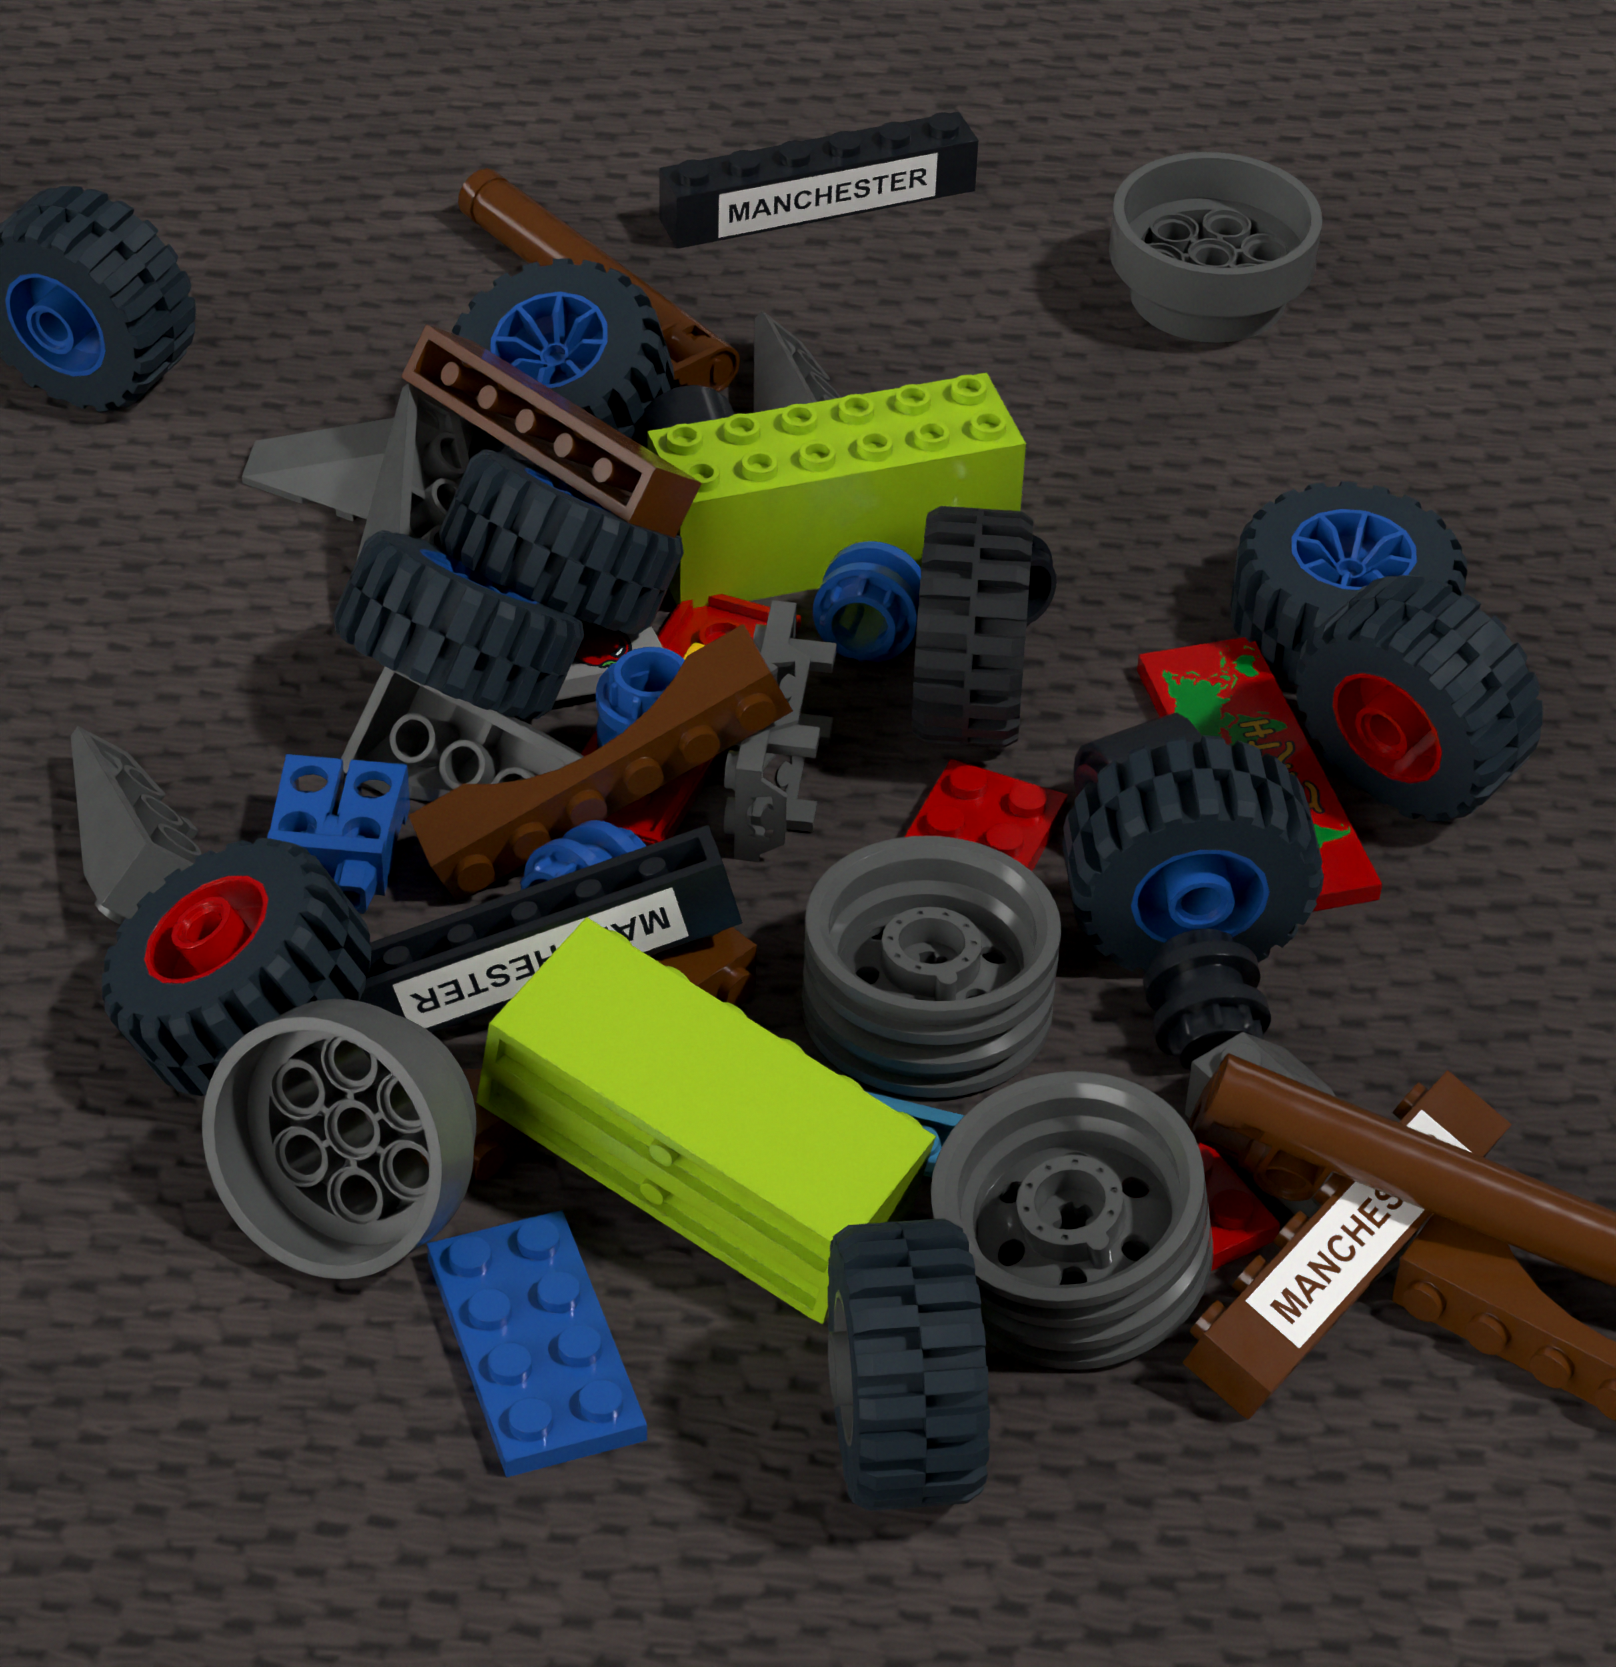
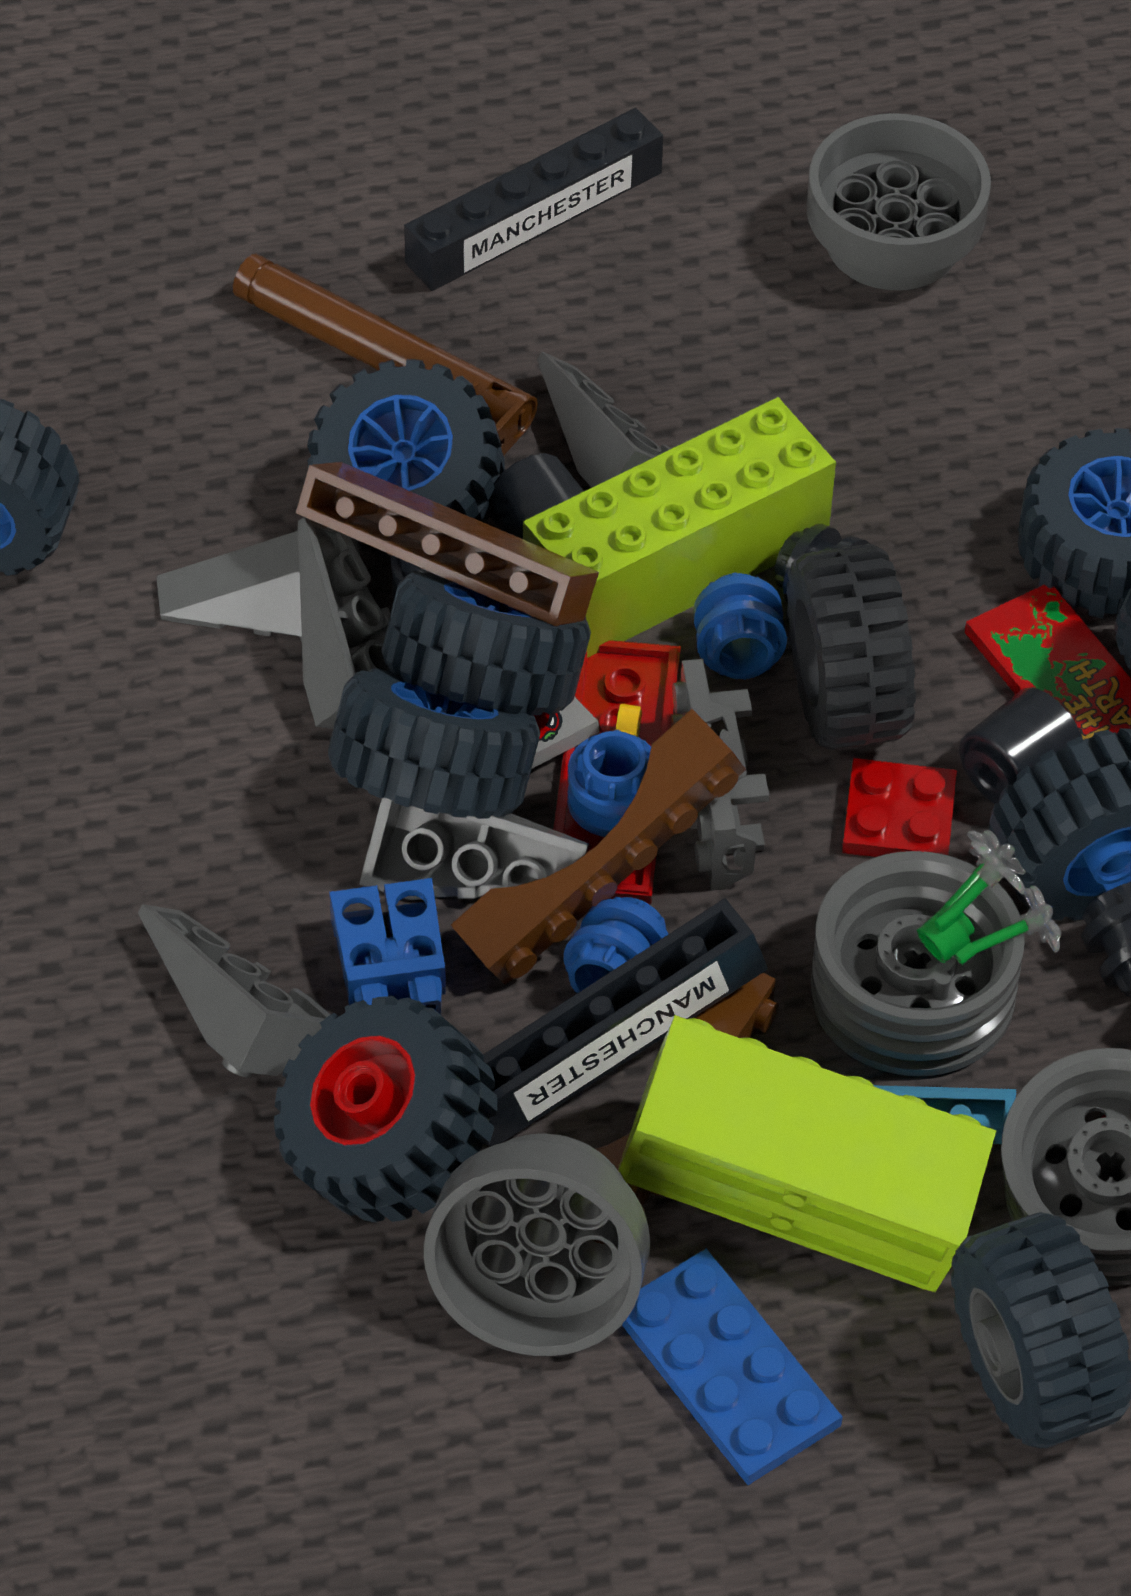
camera: 15 degrees left, 10 degrees up
(966, 916) = (949, 929): none -> plant

